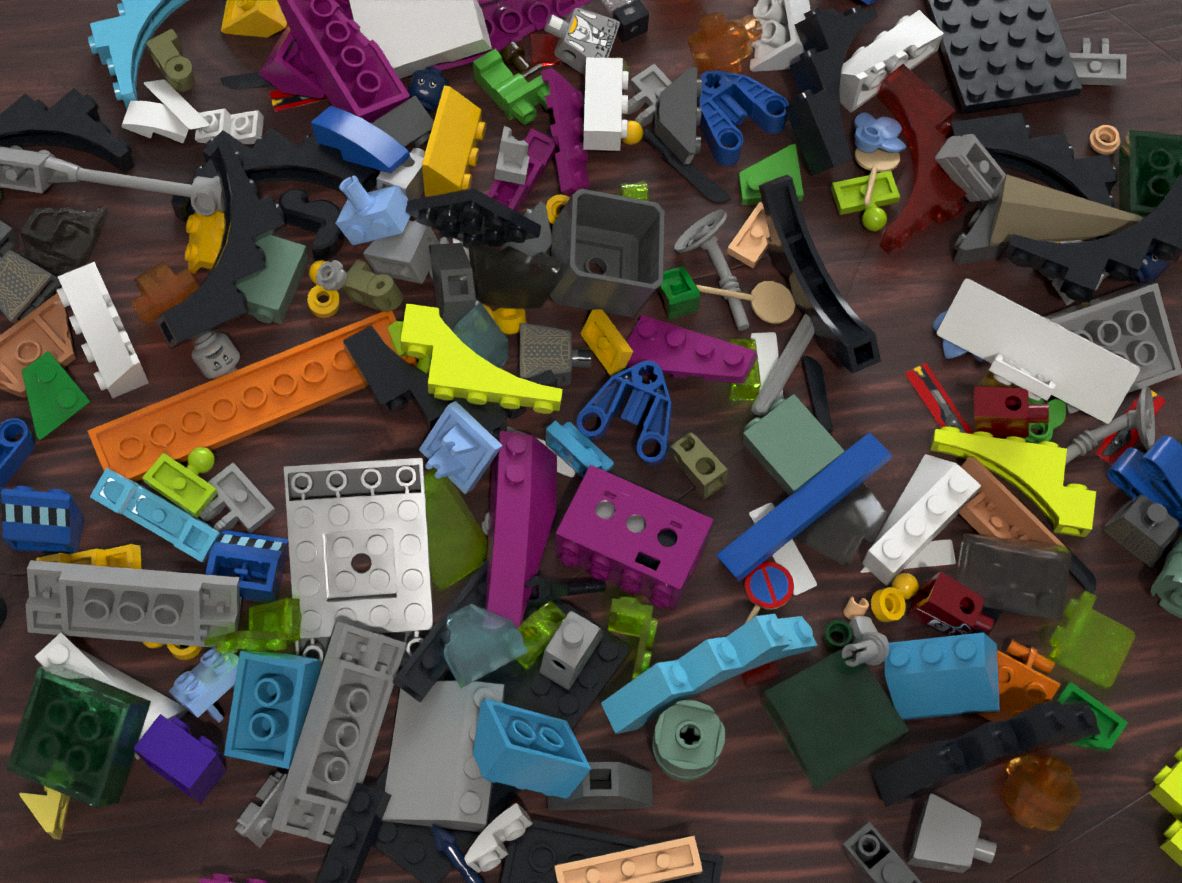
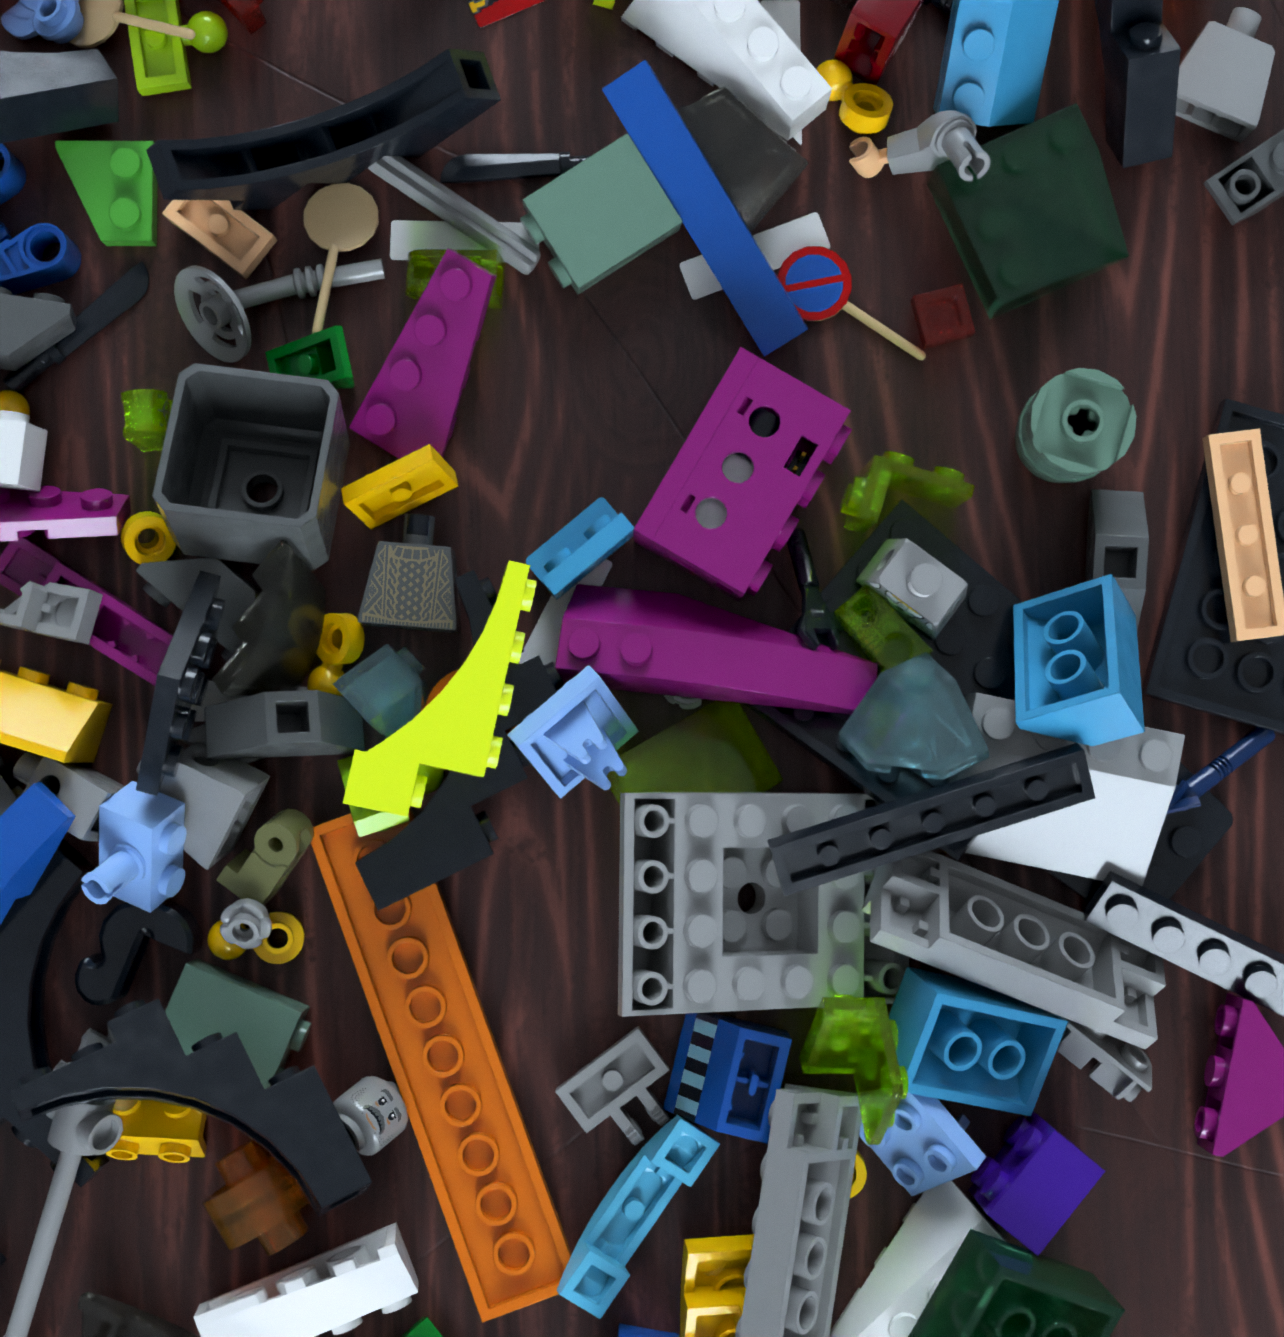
camera: 85 degrees left, 20 degrees up
(181, 483) = (590, 1173): lime plate -> none
(418, 655) = (931, 818): none -> black plate
(489, 845) = (1201, 732): white slope -> none
(610, 397) = (544, 418): blue connector -> none
(699, 465) = (613, 366): olive leg -> none
(708, 664) = (966, 382): medium azure arch -> none
(838, 628) = (913, 179): dark green hose -> none

